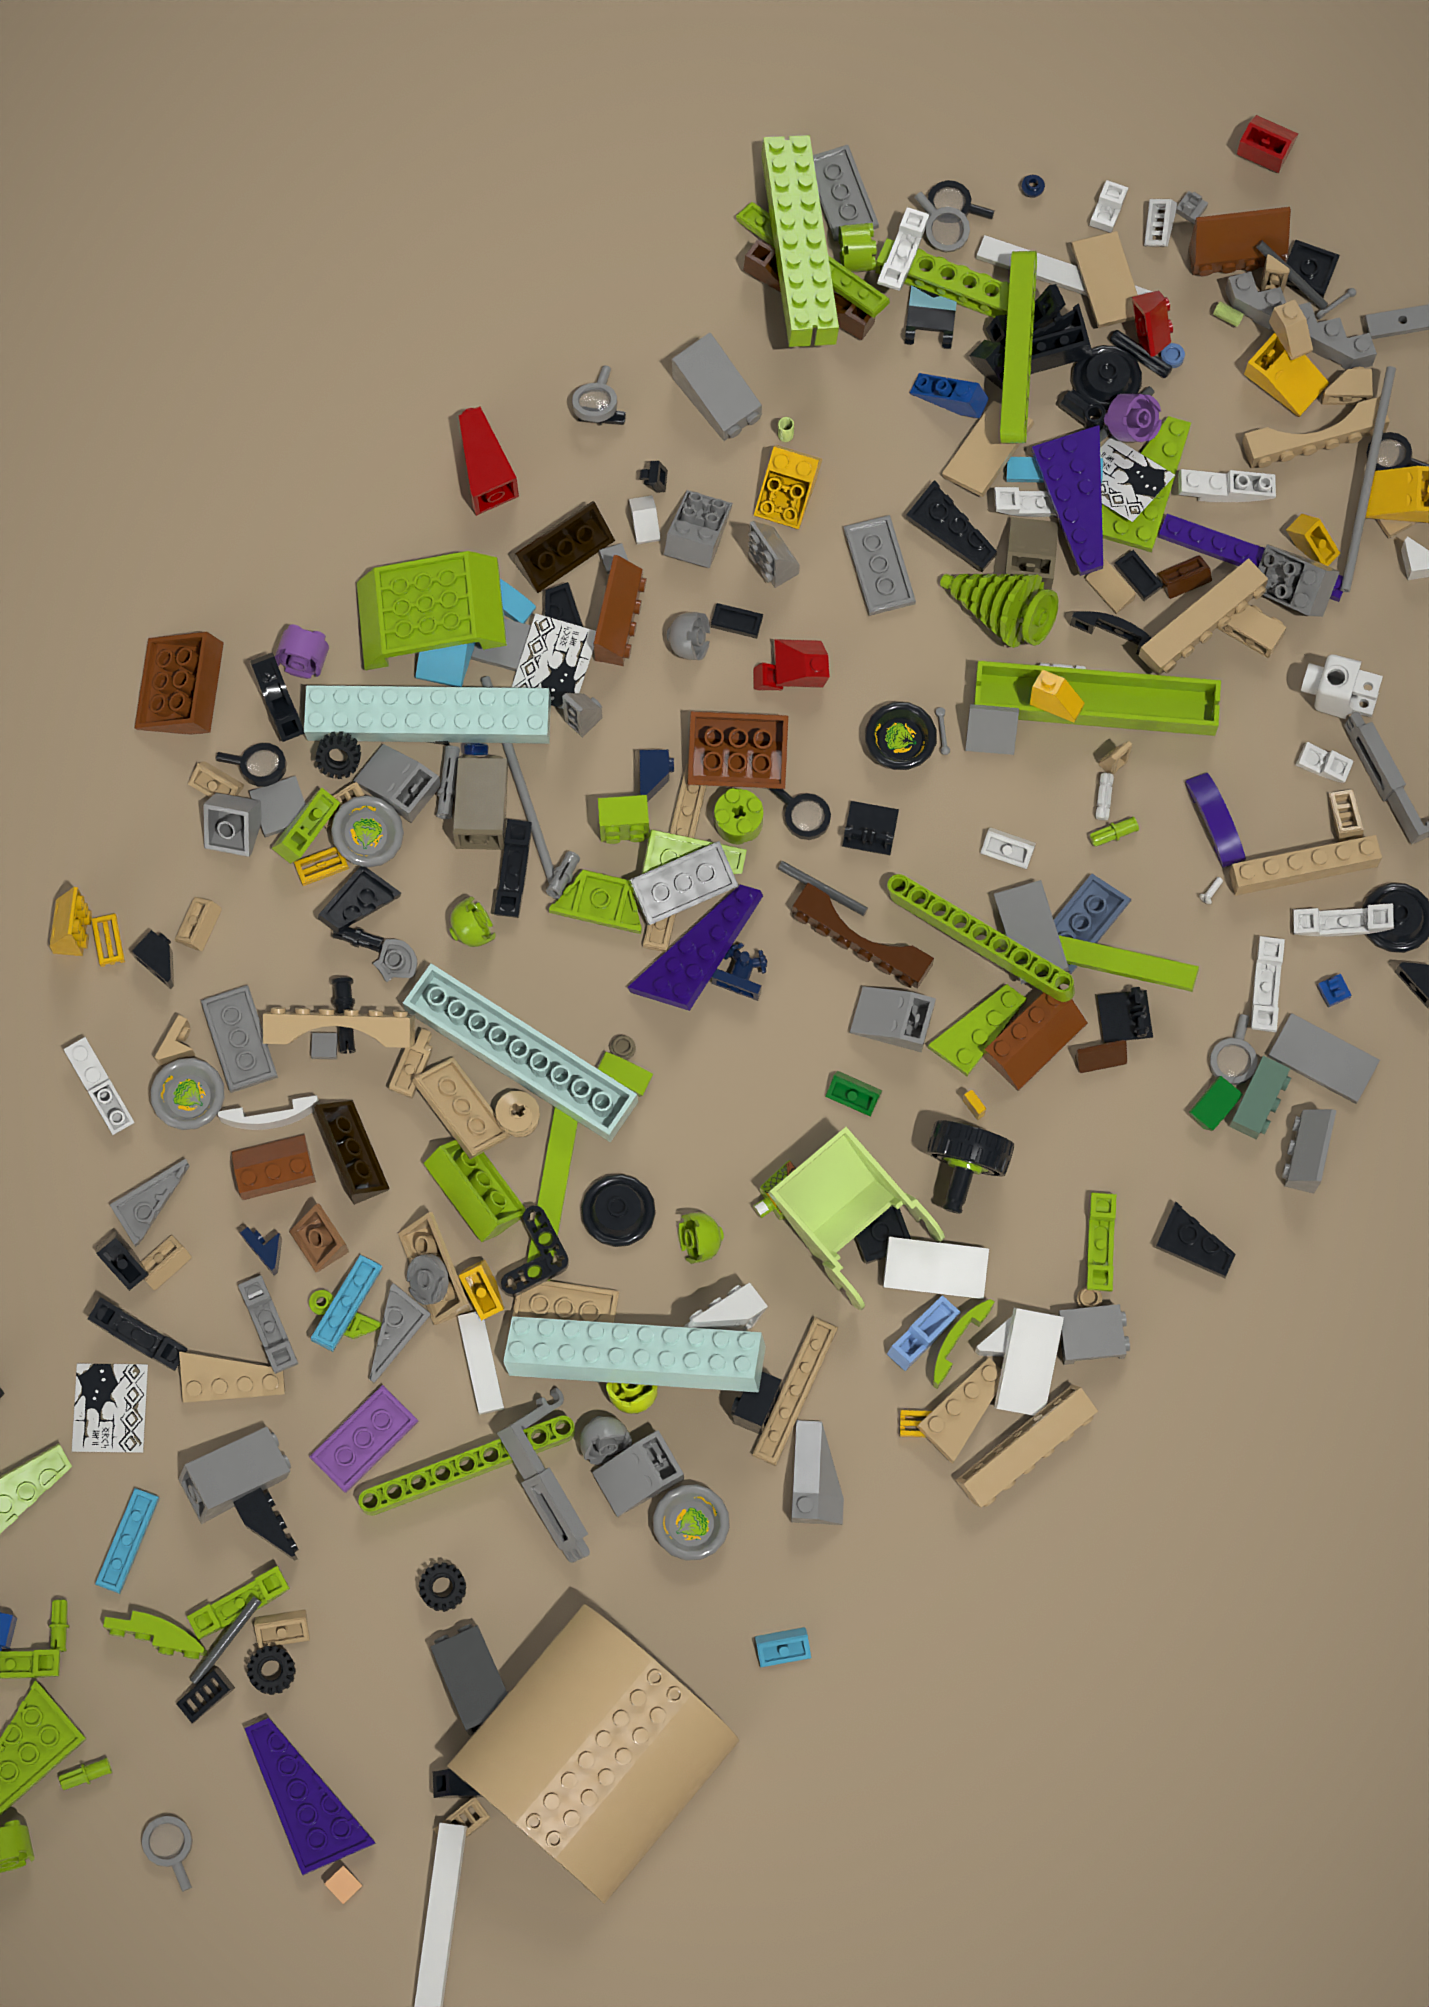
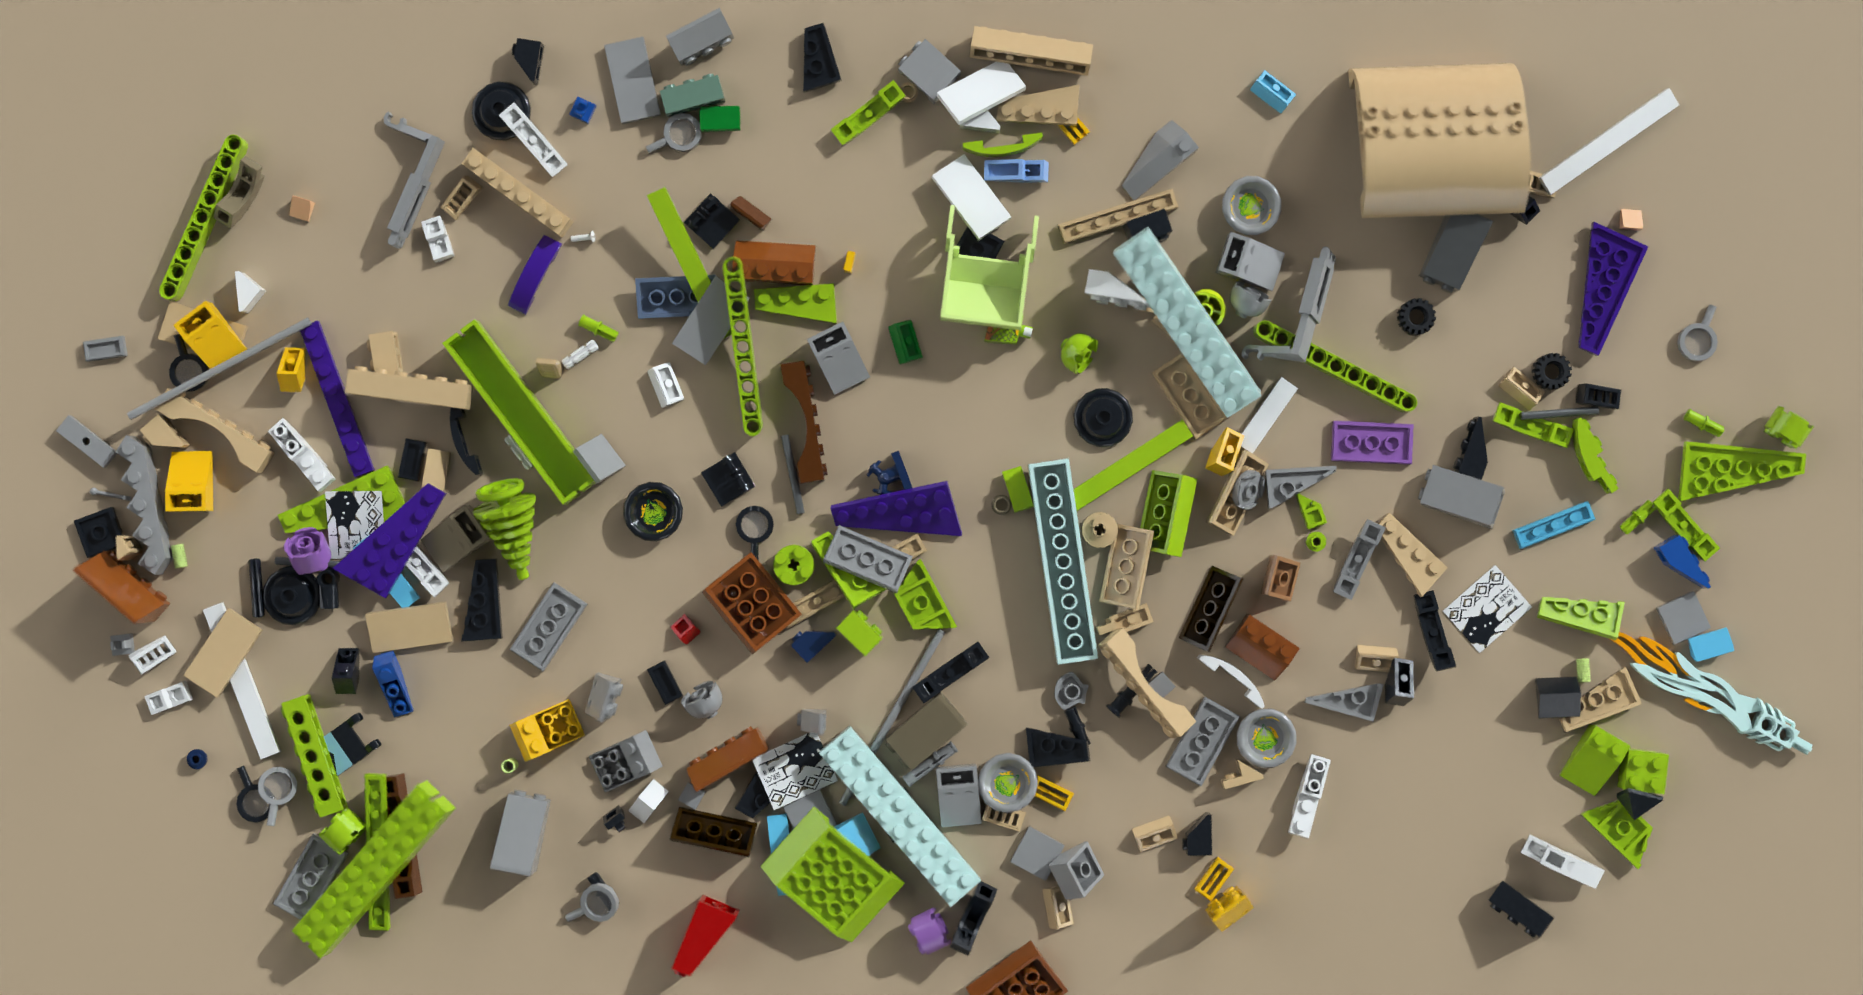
camera: 130 degrees left, 15 degrees up
(260, 764) = (1022, 890): black piece -> none
(267, 1253) = (1318, 599): dark blue slope -> none
(306, 826) = (1038, 823): lime slope -> none
(336, 767) = (968, 850): black tyre -> none
(346, 1303) = (1304, 525): medium azure tile -> none
(471, 924) = (1009, 664): lime cylinder -> none
(476, 749) = (894, 765): clear blue tile -> none
(543, 1262) = (1175, 431): black beam -> none
(559, 880) = (939, 634): light grey pin -> none
(800, 663) = (658, 616): red slope -> none
(904, 249) = (320, 797): white slope -> none
(940, 713) = (613, 503): light grey hinge -> none
(969, 1153) = (887, 234): black wheel -> none
(1018, 347) = (324, 663): lime beam -> none
(1046, 309) = (298, 677): black arch -> none
(1056, 696) = (545, 432): yellow slope -> none
(1060, 342) = (299, 644): black wedge -> none
(1152, 321) = (229, 596): red slope -> none
(1173, 355) = (239, 567): medium blue tile -> none
(1185, 576) = (387, 430): reddish brown slope -> none
(1266, 143) = (32, 633): red slope -> none
(1267, 984) = (616, 152): white slope -> none
(1291, 329) = (158, 499): tan slope -> none
(1294, 277) = (117, 528): dark grey bar -> none
(1297, 581) = (330, 354): light grey slope -> none
(1341, 687) = (373, 260): white piece -> none

